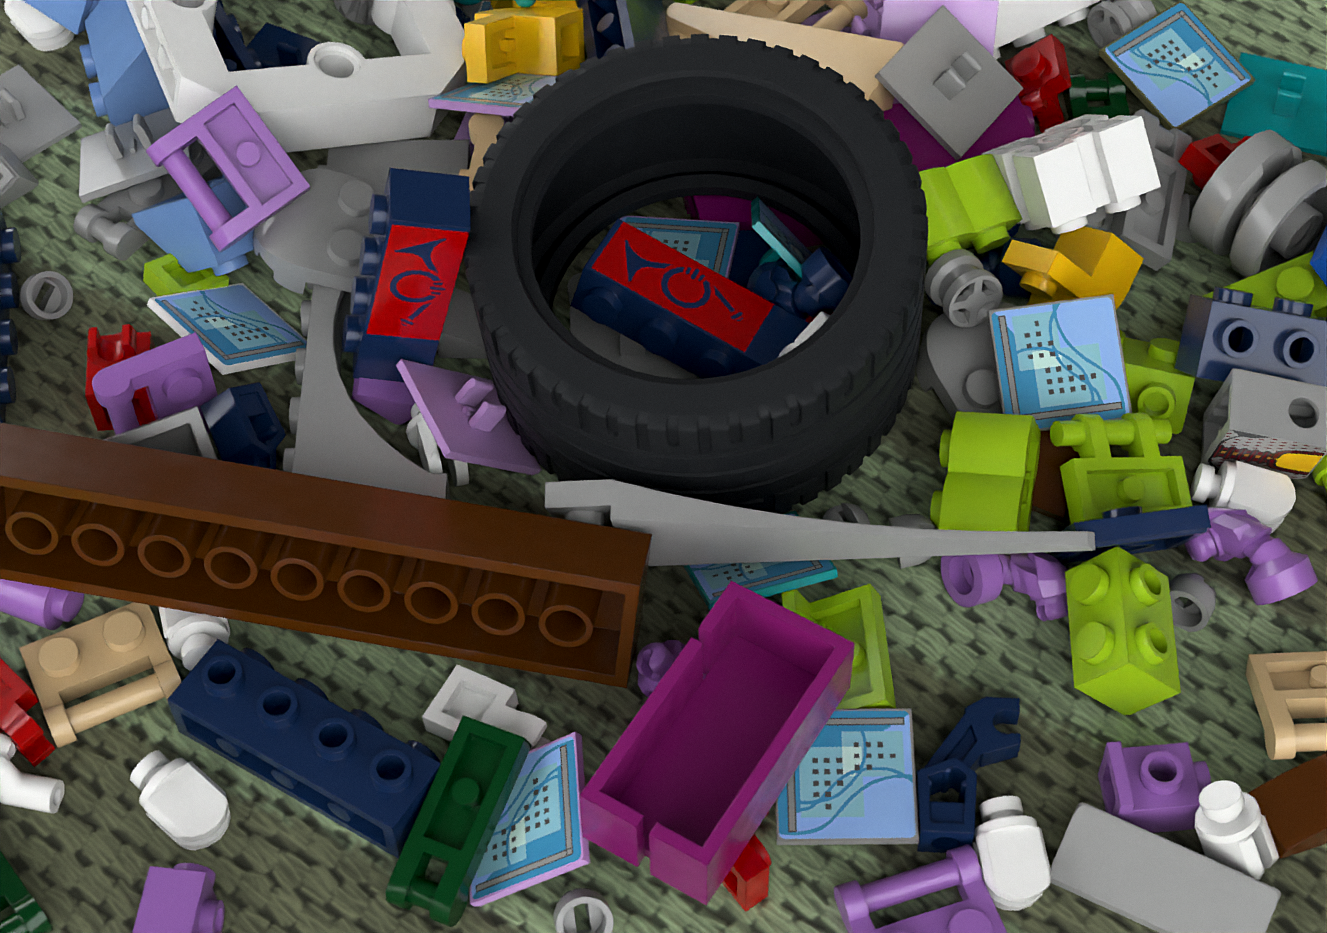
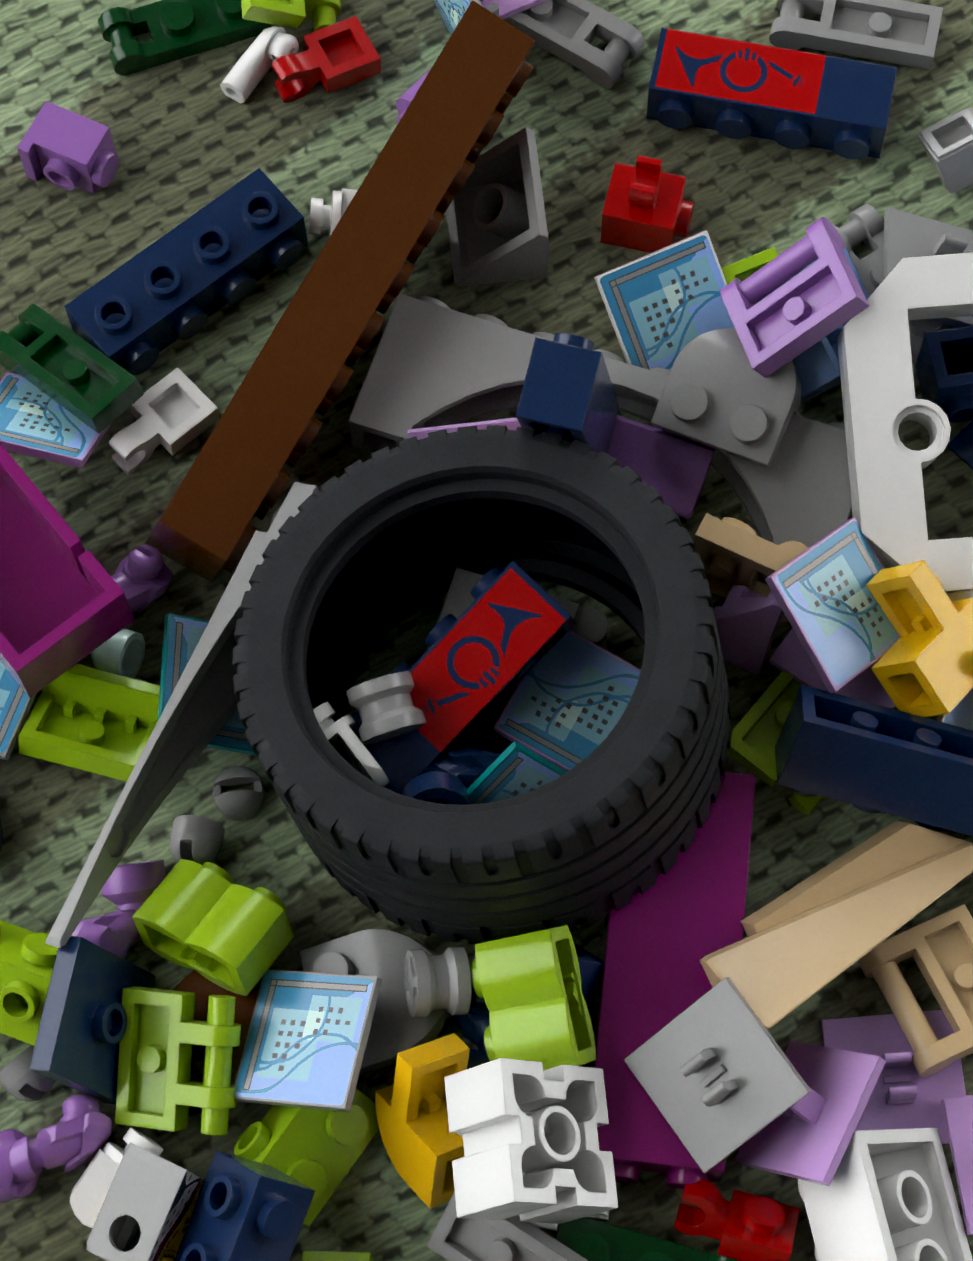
camera: 110 degrees right, 15 degrees up
(55, 301) = (773, 175): light grey hinge -> none
(96, 657) = (357, 137): tan plate -> none
(173, 375) = (581, 217): medium lavender plate -> none
(182, 800) = (181, 178): white arm -> none
(244, 426) = (475, 295): dark blue piece -> none
(761, 326) = (386, 707): none -> light grey wheel

